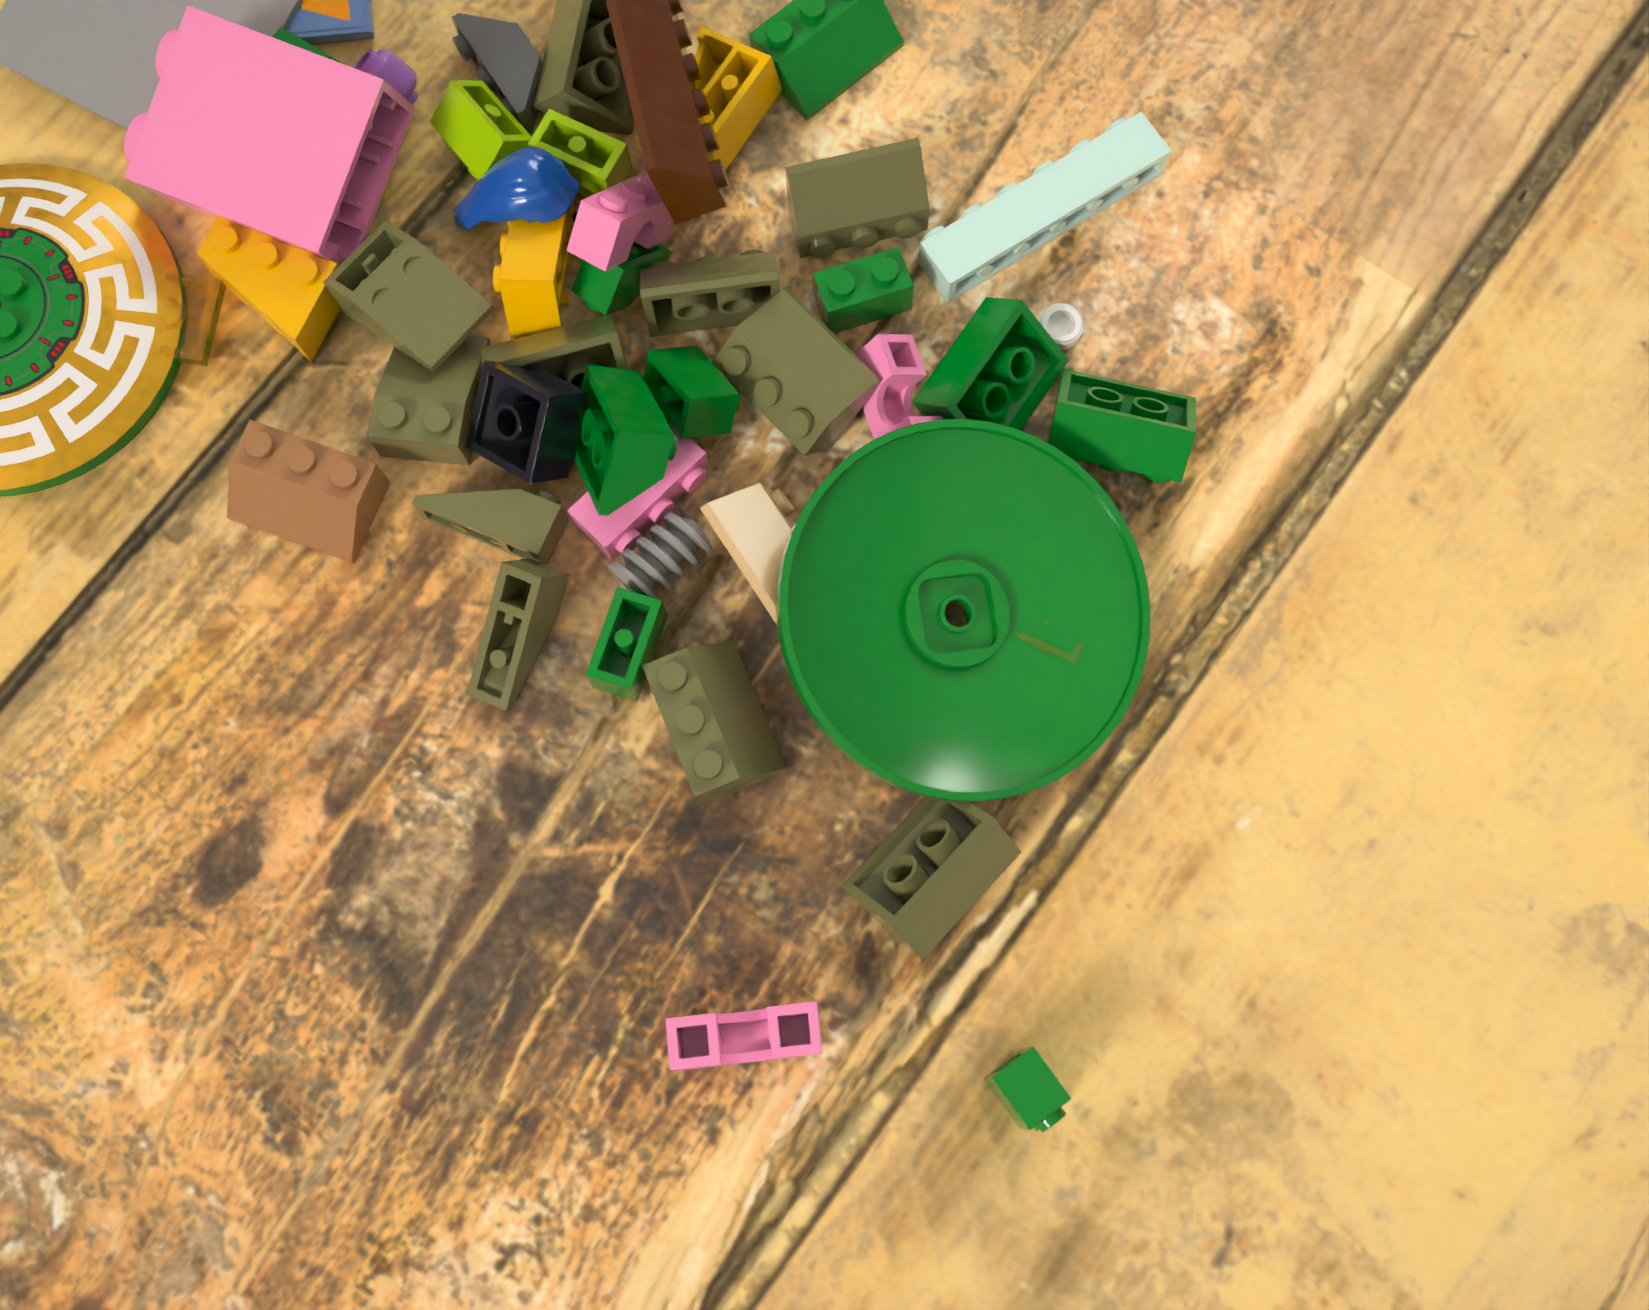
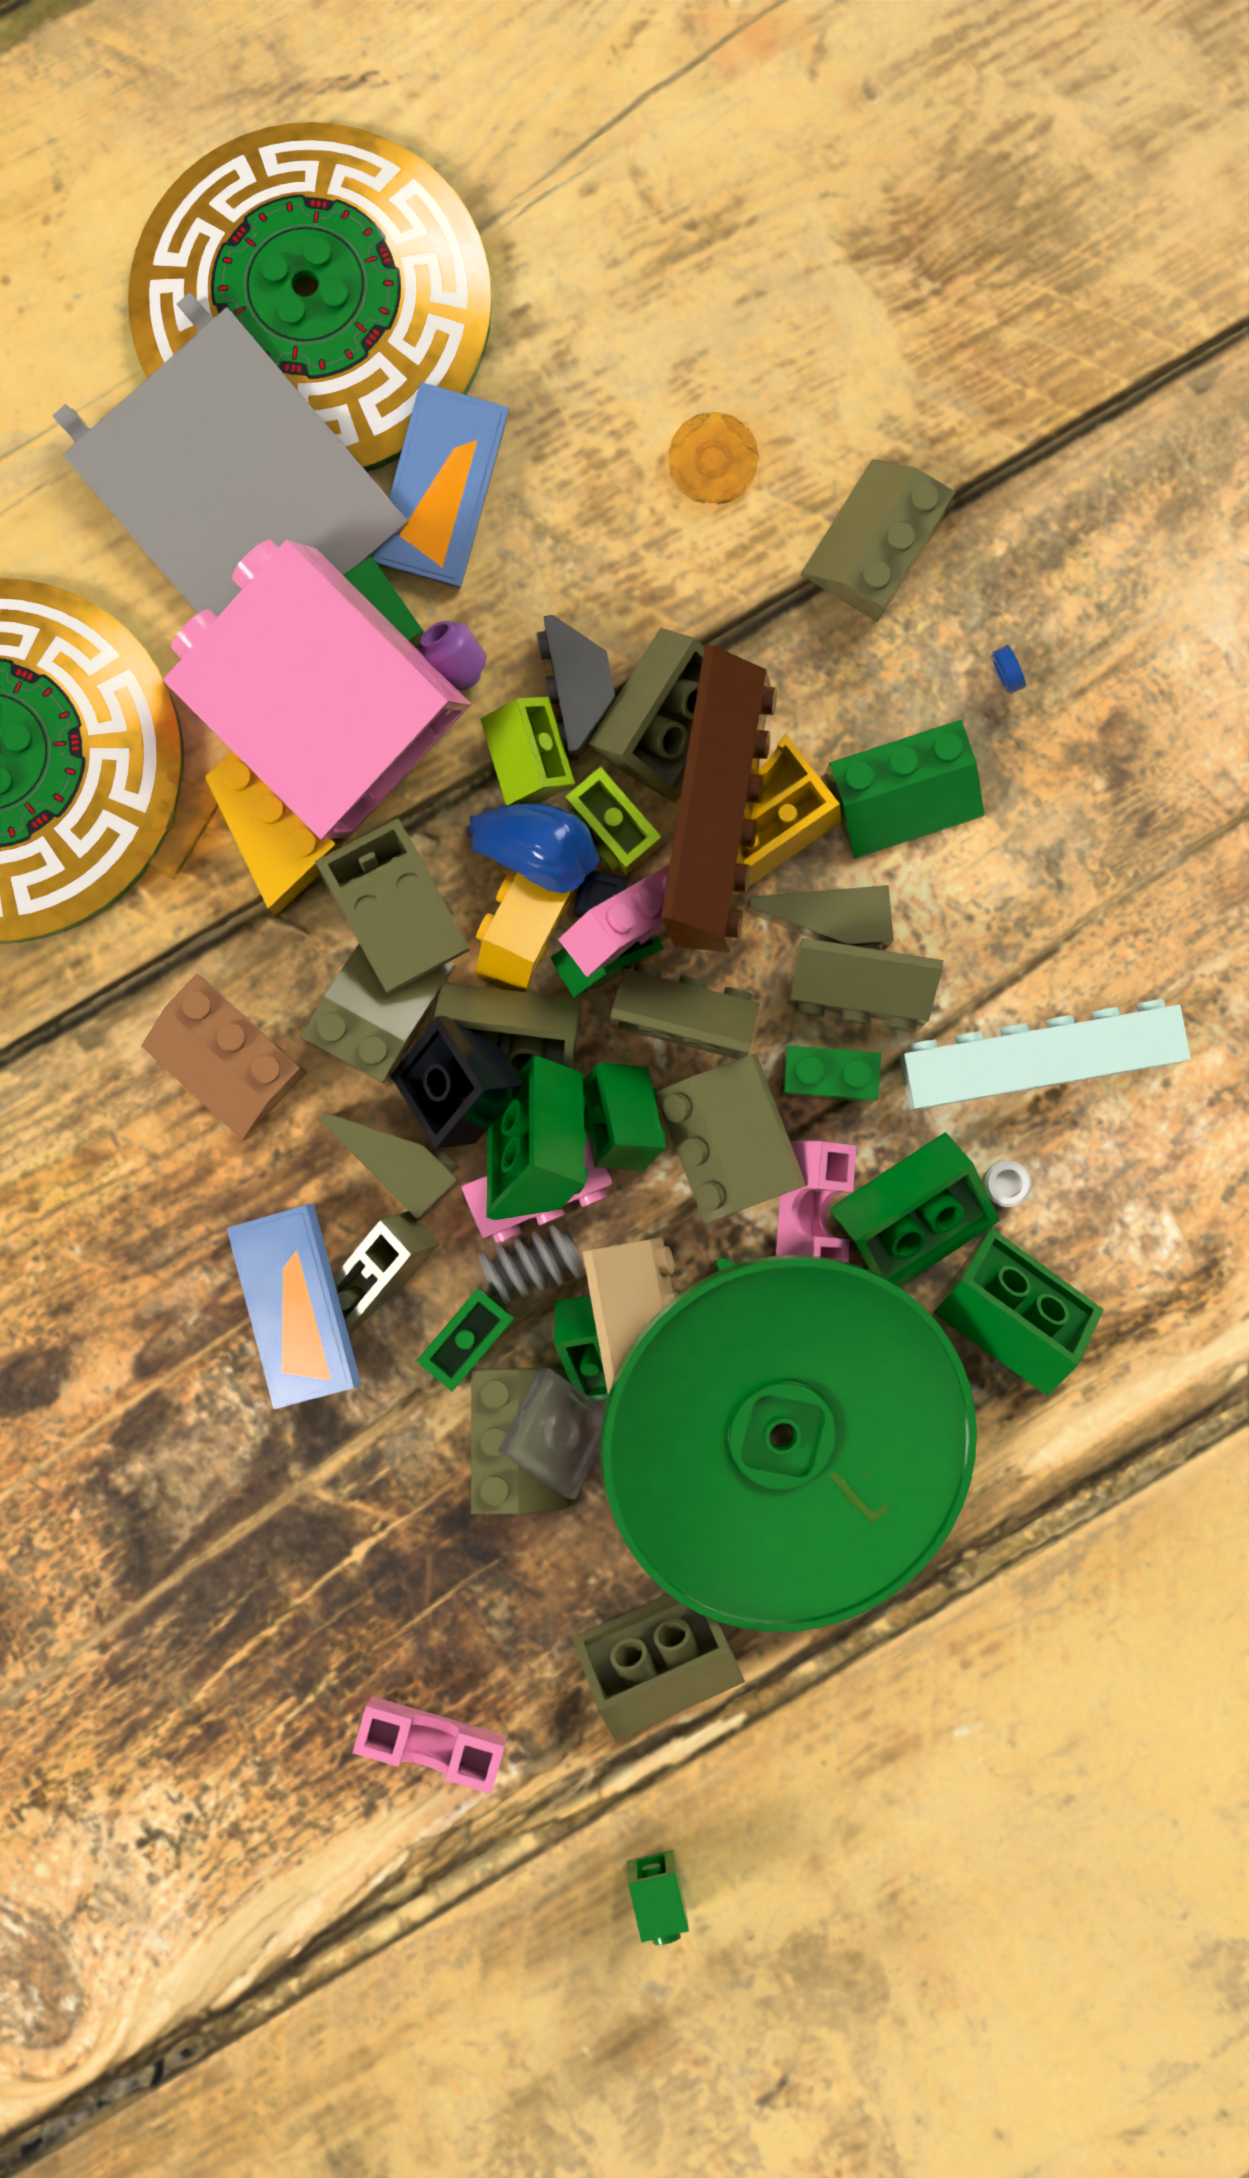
camera: 15 degrees right, 10 degrees up
(454, 684) = (294, 1306): none -> tile
(741, 612) = (579, 1346): none -> green slope
(745, 694) = (555, 1433): none -> clear tile
(765, 173) = (837, 916): none -> olive slope

